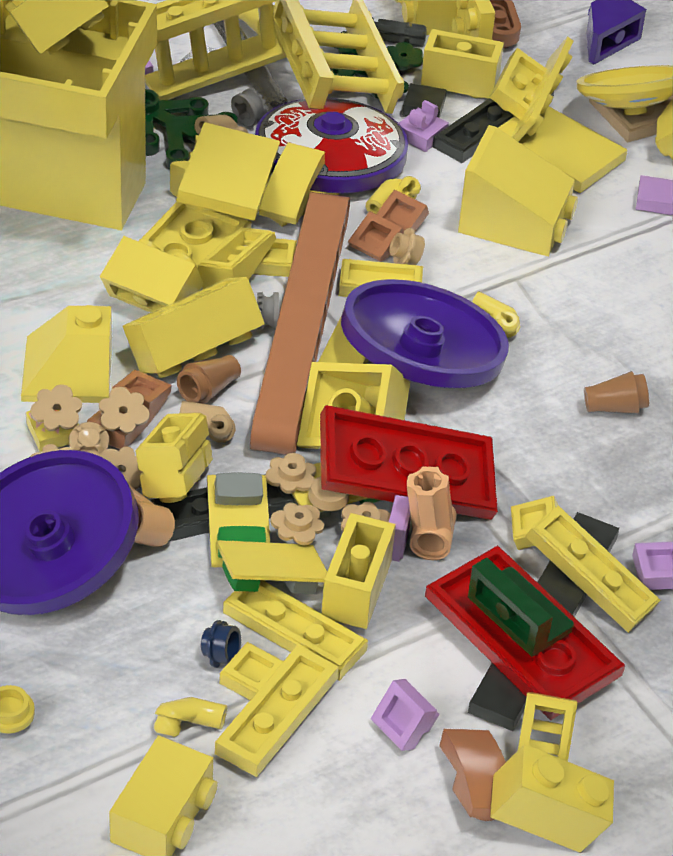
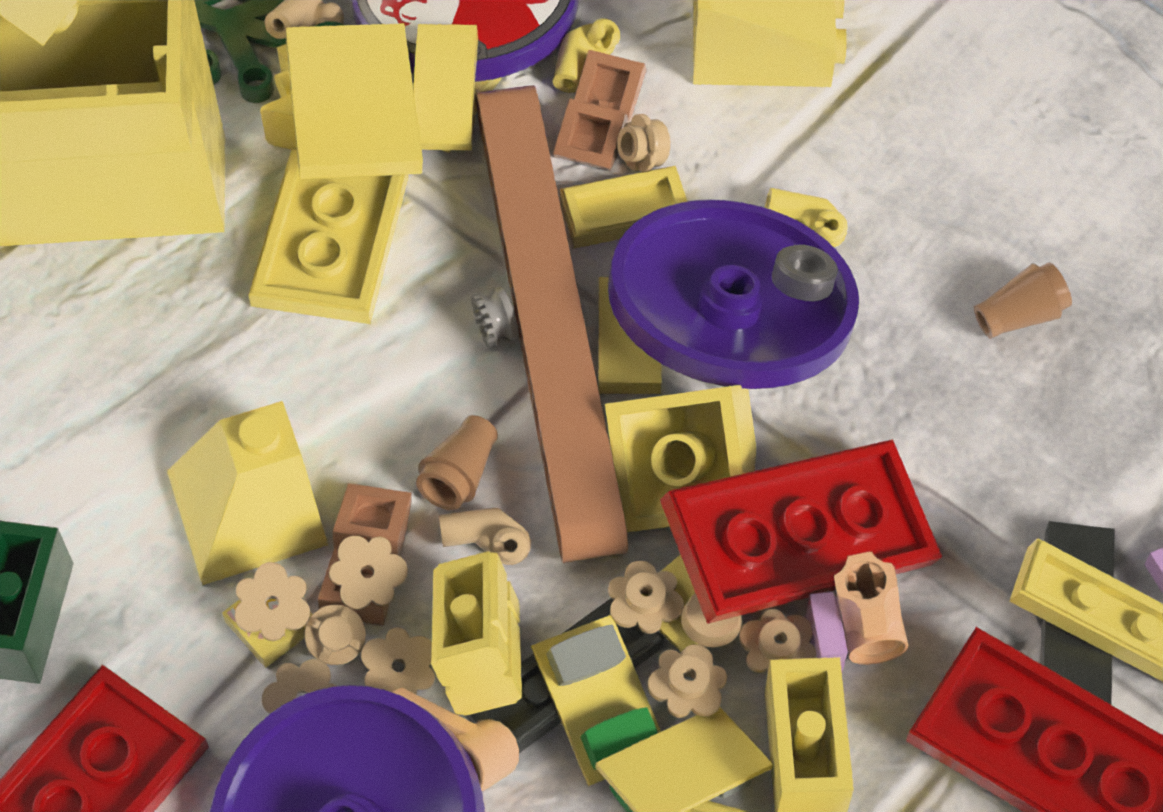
camera: 15 degrees left, 15 degrees up
(148, 276) = (313, 318): light yellow brick -> none
(194, 327) = (406, 386): light yellow brick -> none
(236, 256) = (418, 276): light yellow slope -> none
(278, 259) = (462, 213): light yellow tile -> none
(474, 332) = (804, 273): none -> flat silver tile
(517, 607) = (1055, 733): dark green panel -> none
(526, 516) = (996, 556): light yellow tile -> none

